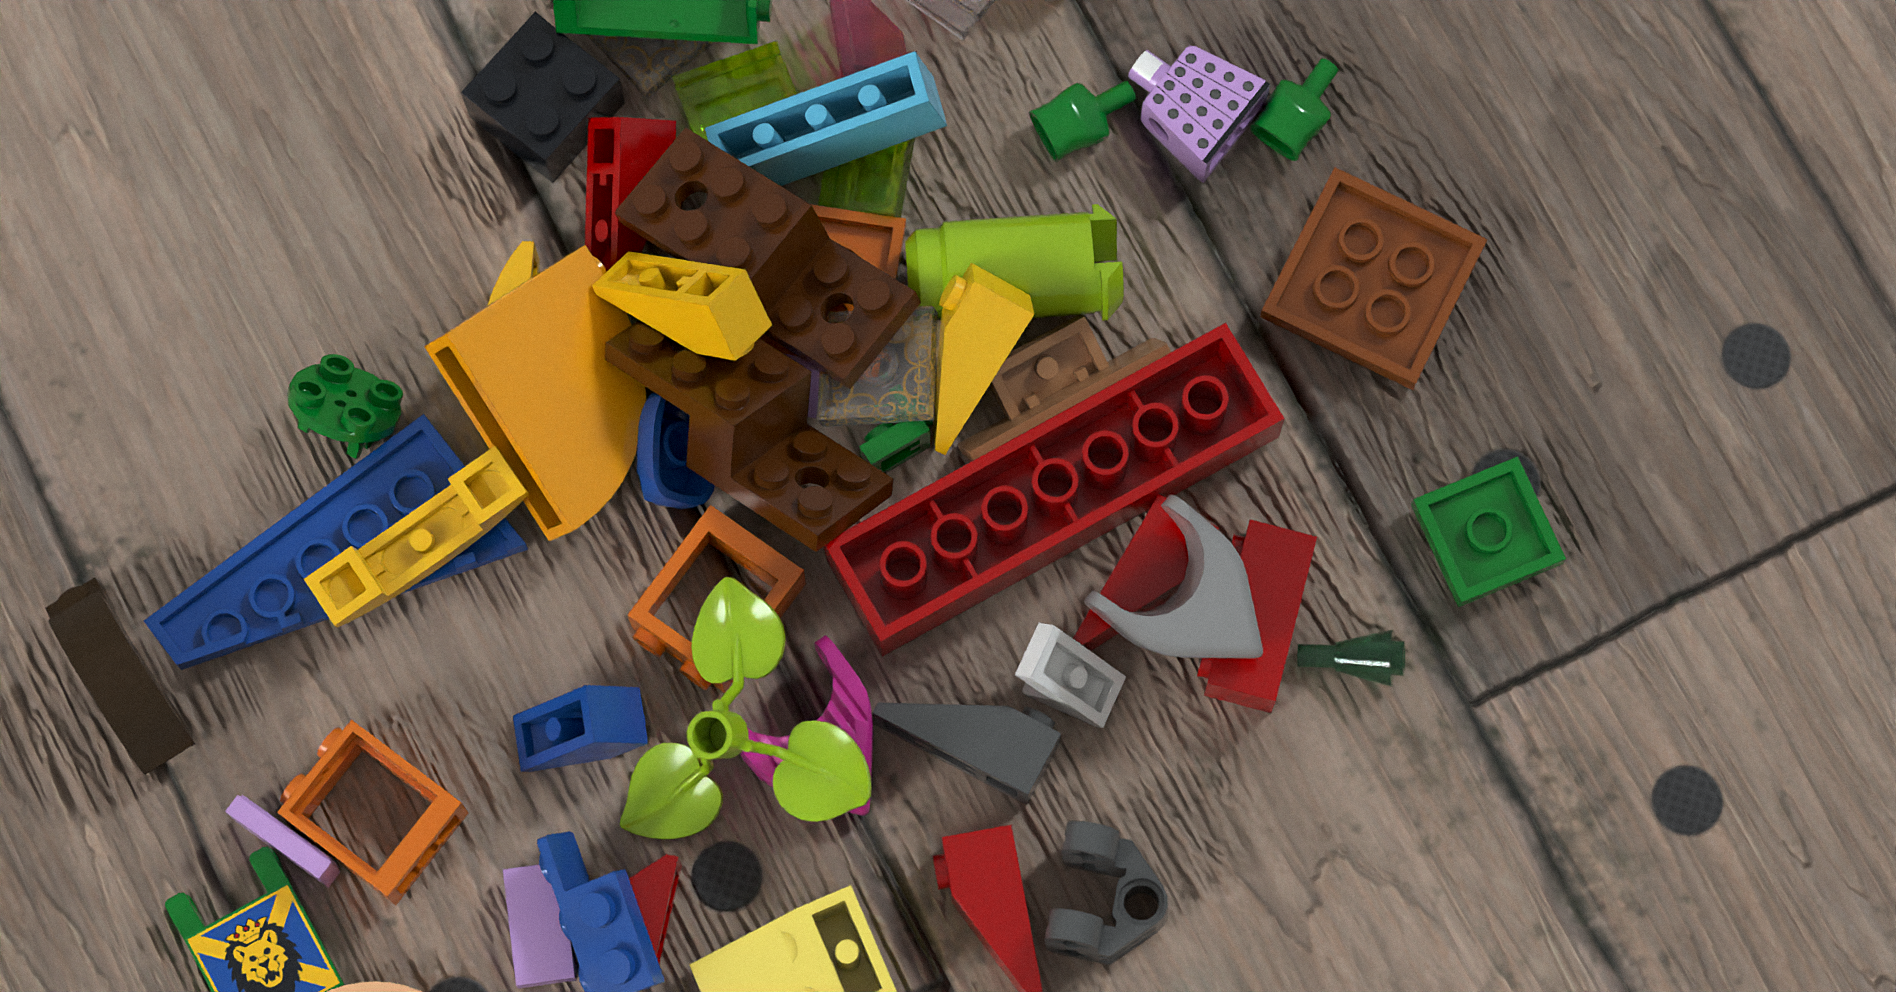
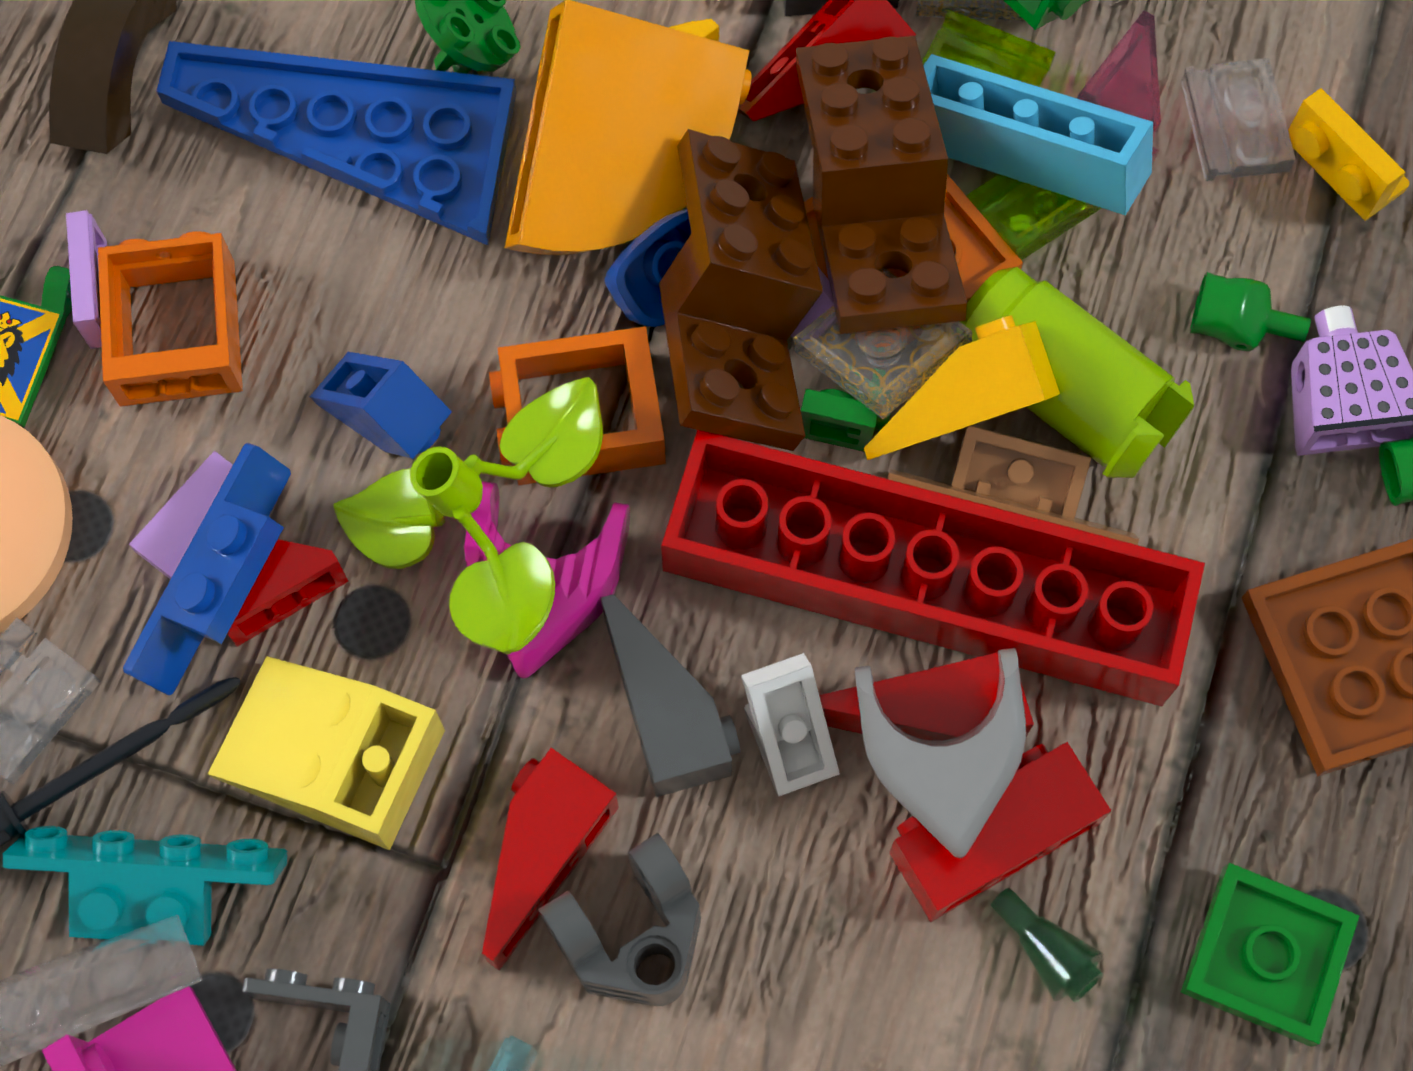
camera: 45 degrees right, 5 degrees down
(420, 541) = (405, 158): yellow slope -> none
(689, 301) = (779, 153): yellow slope -> none

